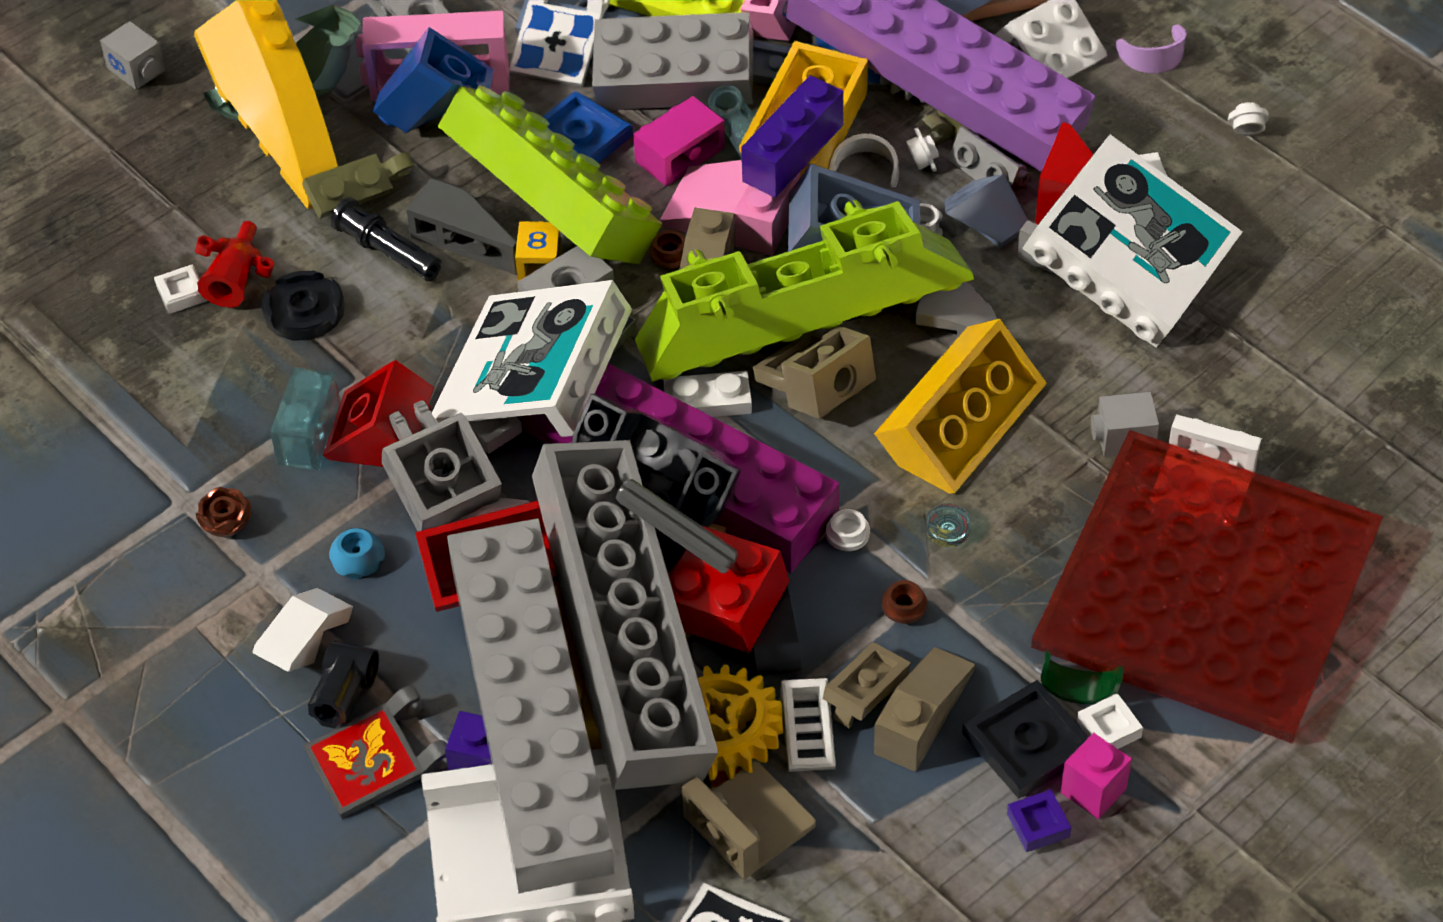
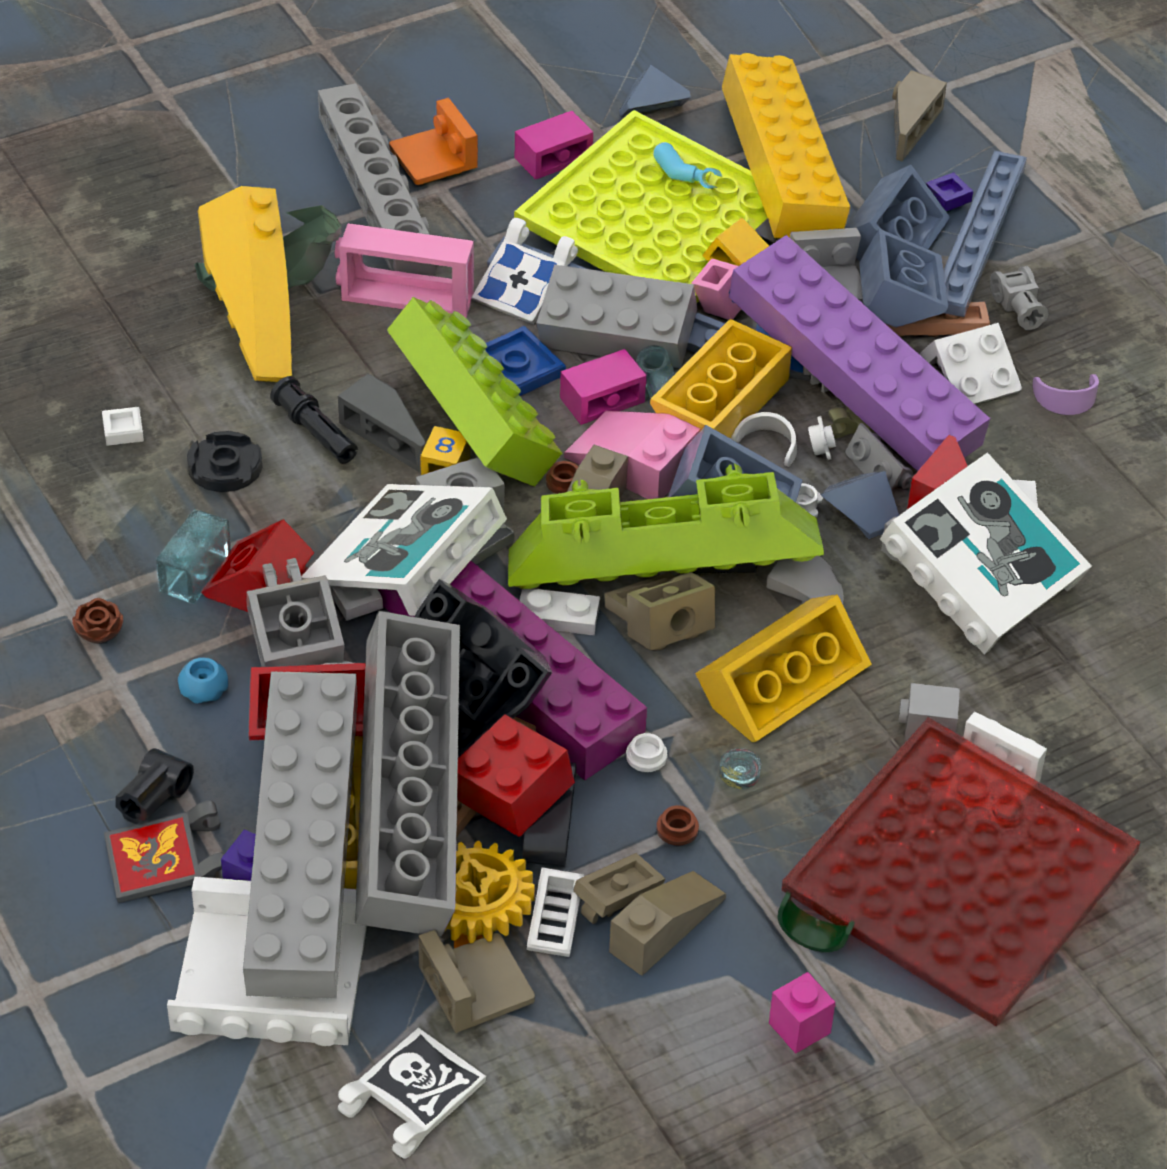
camera: 10 degrees right, 5 degrees down
(132, 55) = (143, 220): light grey brick -> none
(228, 274) = (166, 420): red piece -> none
(298, 629) = (128, 733): white slope -> none
(360, 180) = (307, 364): olive plate -> none
(428, 82) = (389, 288): blue slope -> none
(677, 525) = (478, 706): dark grey axle -> none
(792, 136) = (697, 398): dark purple brick -> none
(1025, 738) = (747, 966): black plate -> none
(1038, 820) = (737, 1041): dark purple plate -> none
(1111, 721) = (832, 970): white plate -> none
(1248, 119) = (1133, 470): white plate -> none

